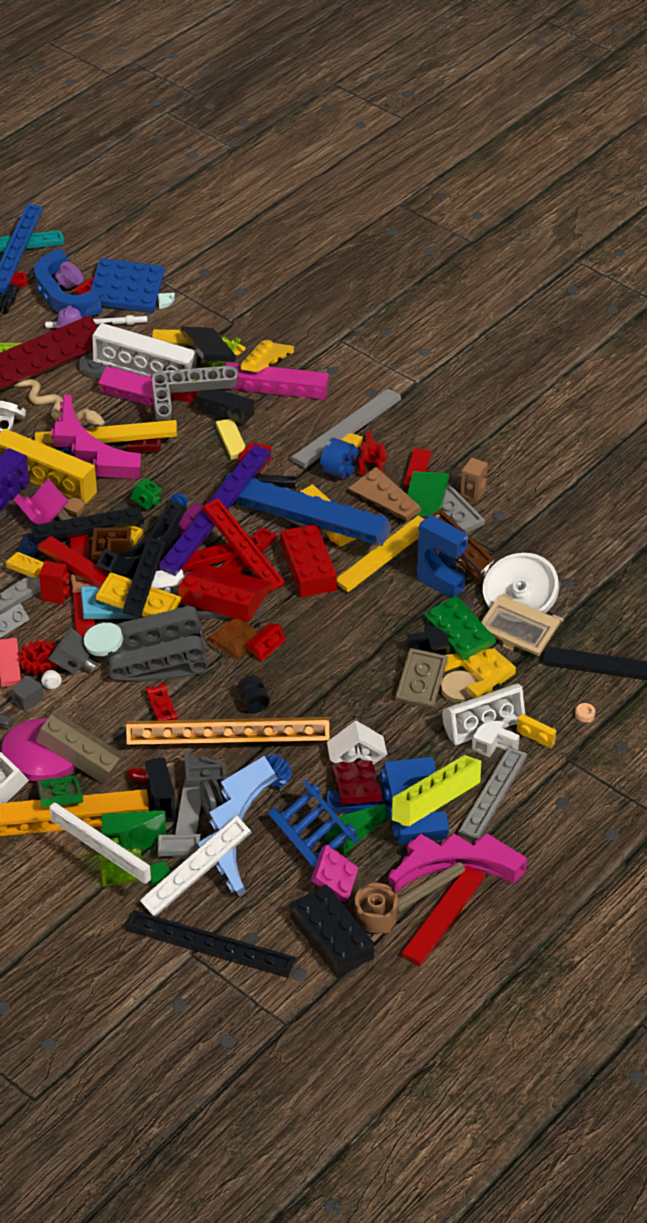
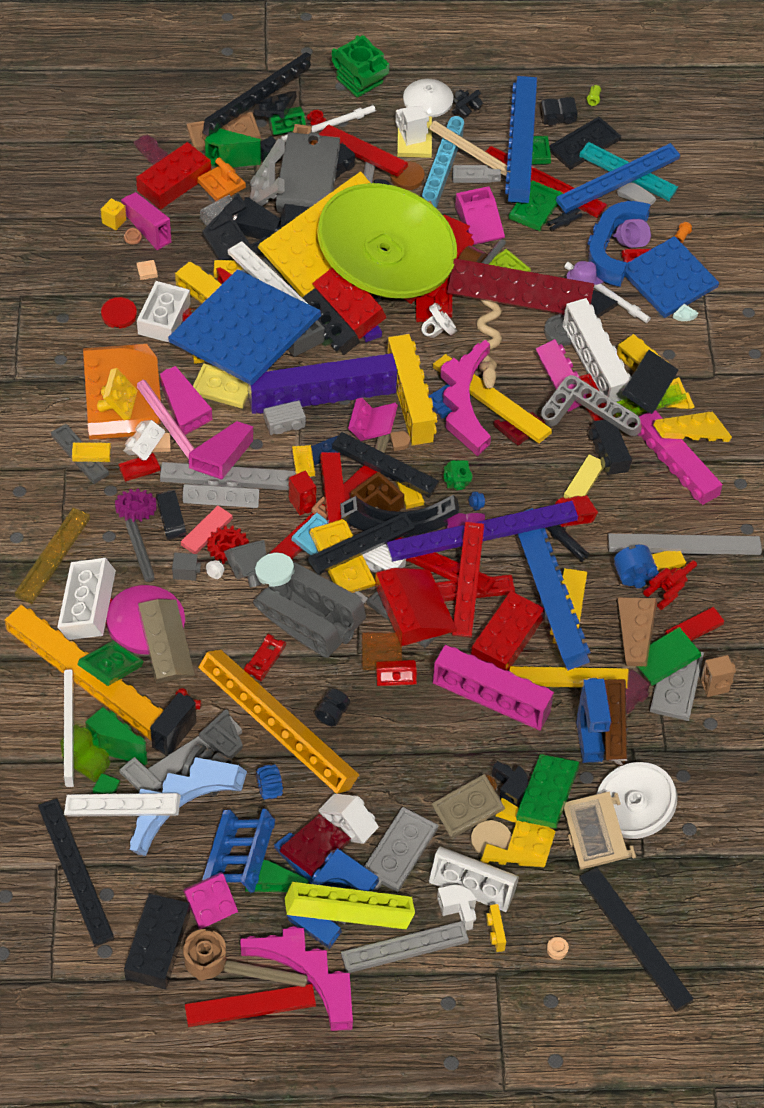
camera: 45 degrees right, 10 degrees up
(37, 251) = (636, 193): none -> light grey slope
(99, 251) = (684, 229): none -> orange pin
(345, 595) = (493, 687): none -> dark pink brick
(409, 735) = (401, 848): none -> light grey tile

